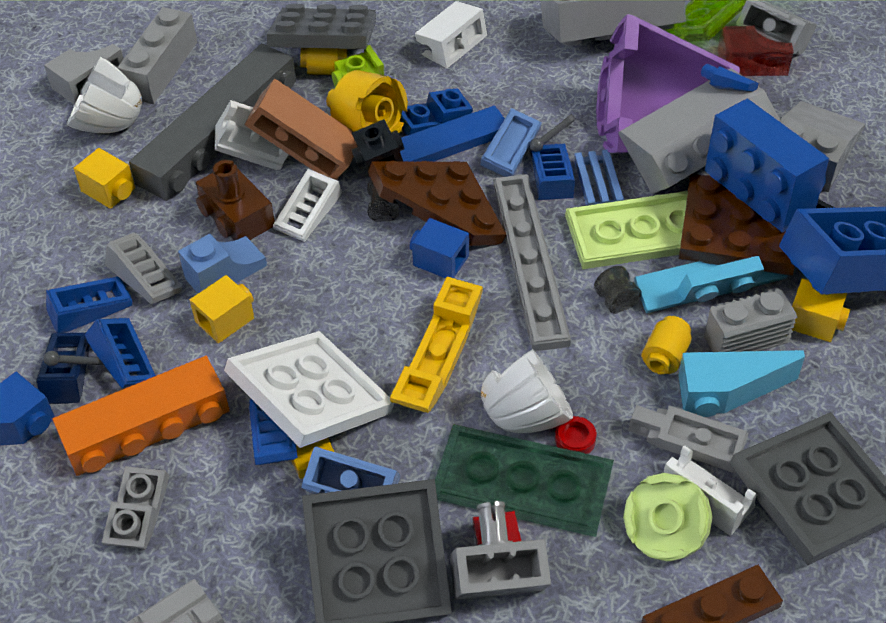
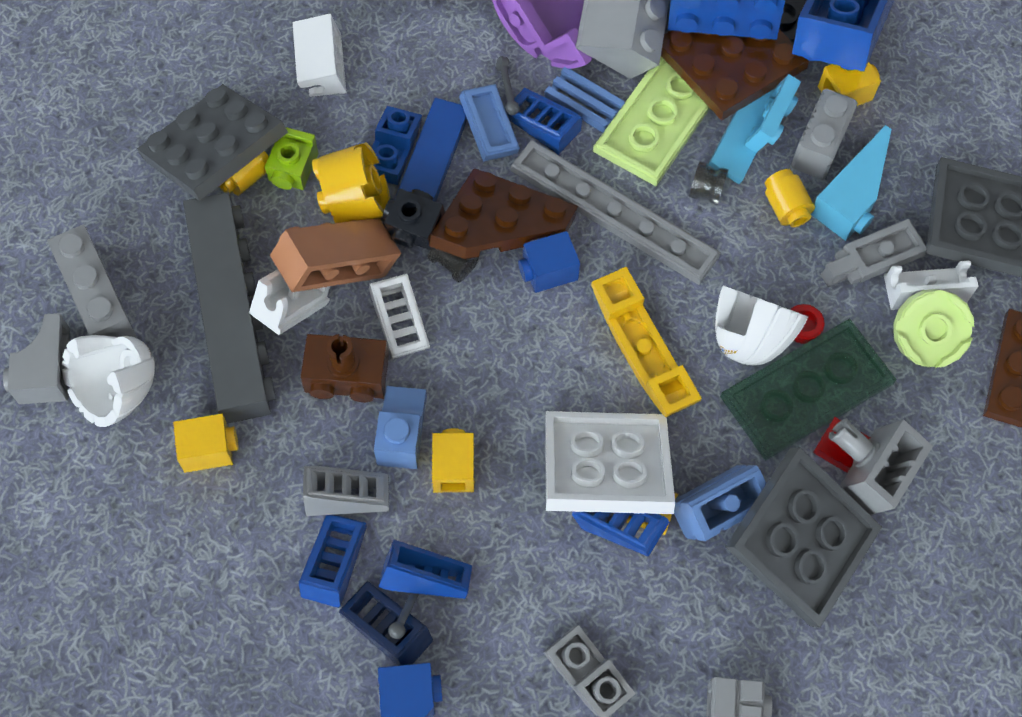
camera: 50 degrees left, 15 degrees up
(141, 415) = (506, 604): orange brick -> none

